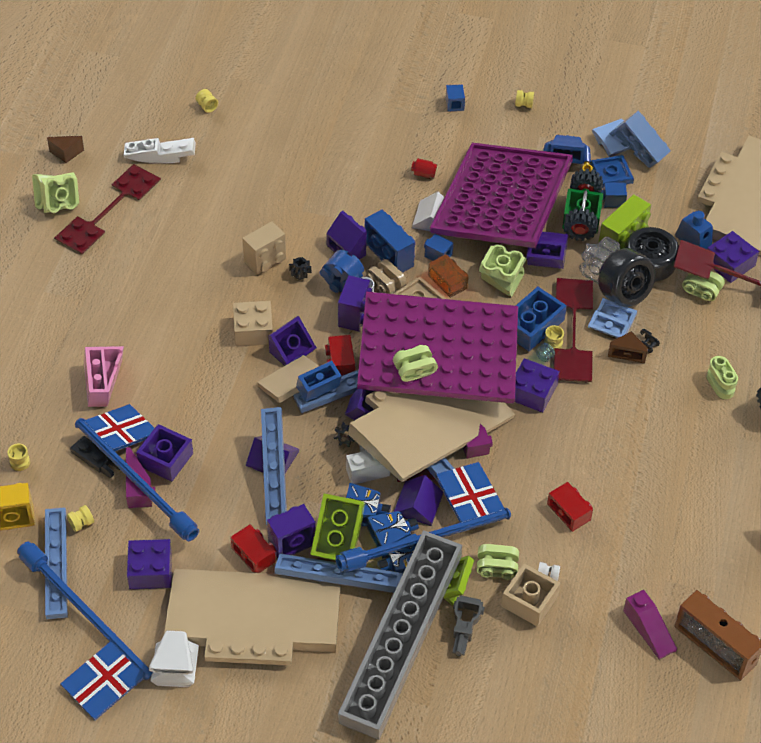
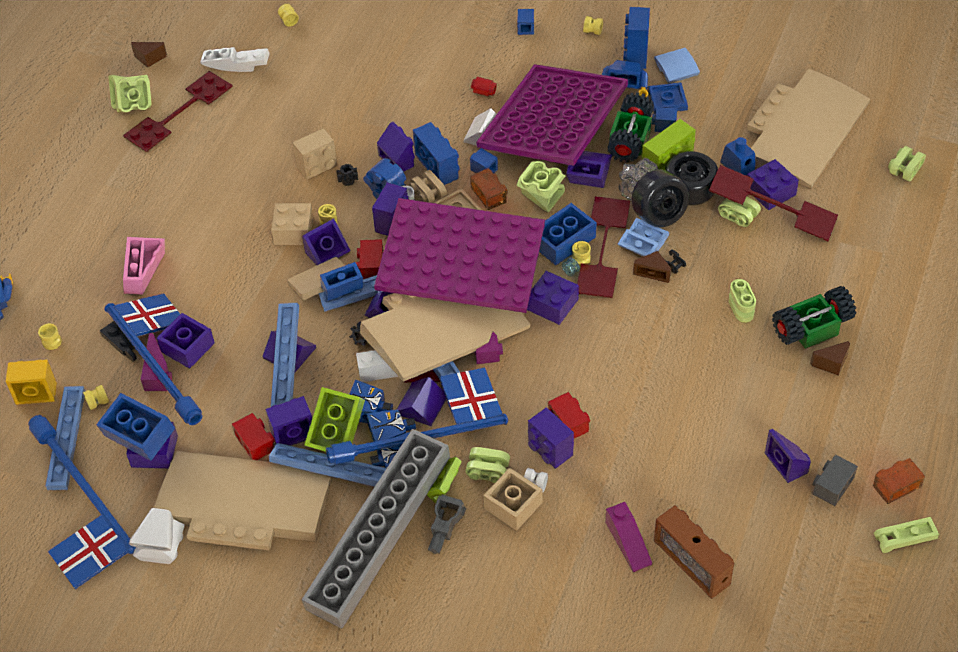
camera: 10 degrees right, 0 degrees up
(136, 547) = (135, 426): none -> blue brick
(287, 311) = (326, 213): none -> light yellow wheel
(415, 363) = (431, 268): yellowish green brick -> none
(558, 530) = (550, 438): none -> dark purple brick
(575, 109) = (637, 34): none -> blue brick
(642, 139) = (700, 67): medium blue wedge -> none

